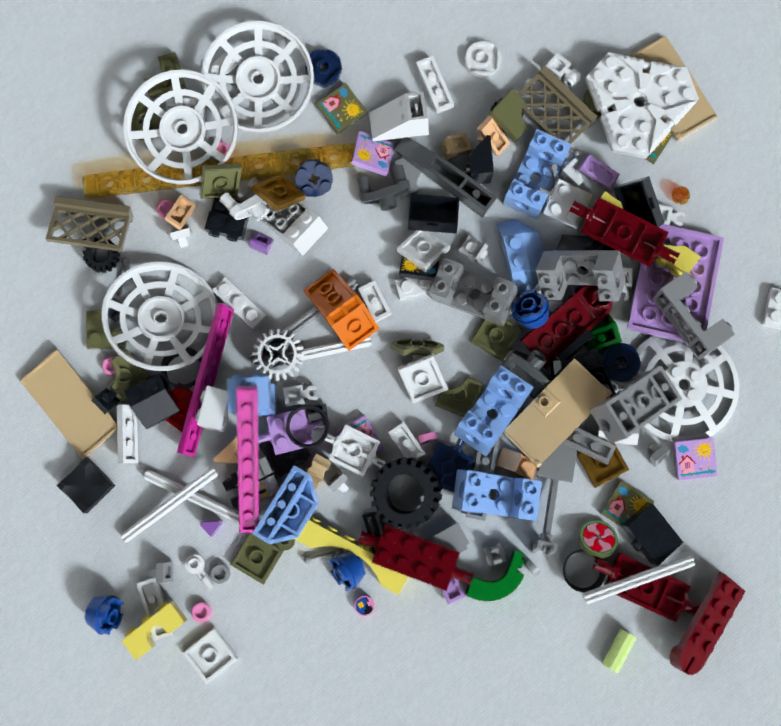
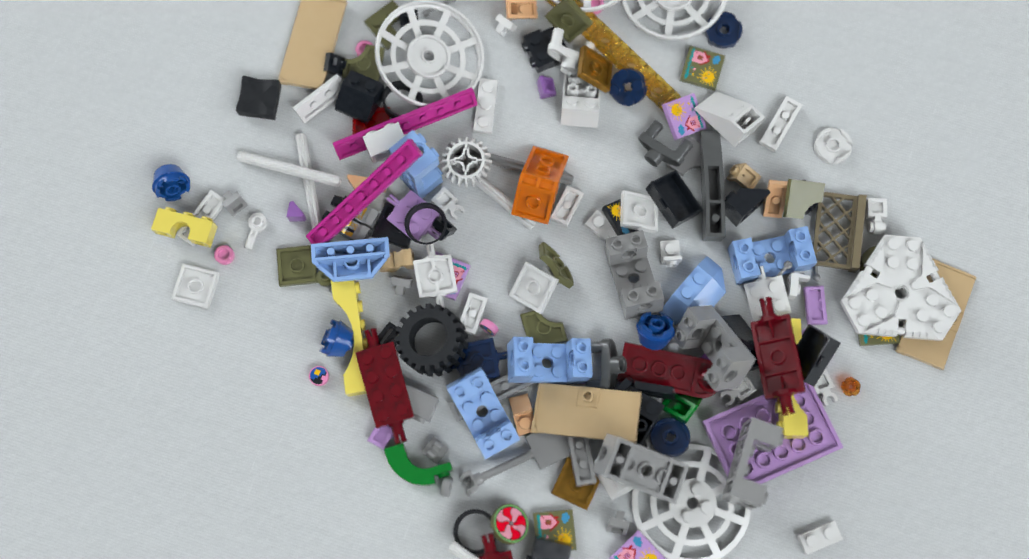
camera: 55 degrees right, 5 degrees down
(220, 573) = (264, 247): light grey tile -> none
(307, 559) = (323, 305): light grey hinge -> none
(495, 338) = (612, 323): olive tile -> none

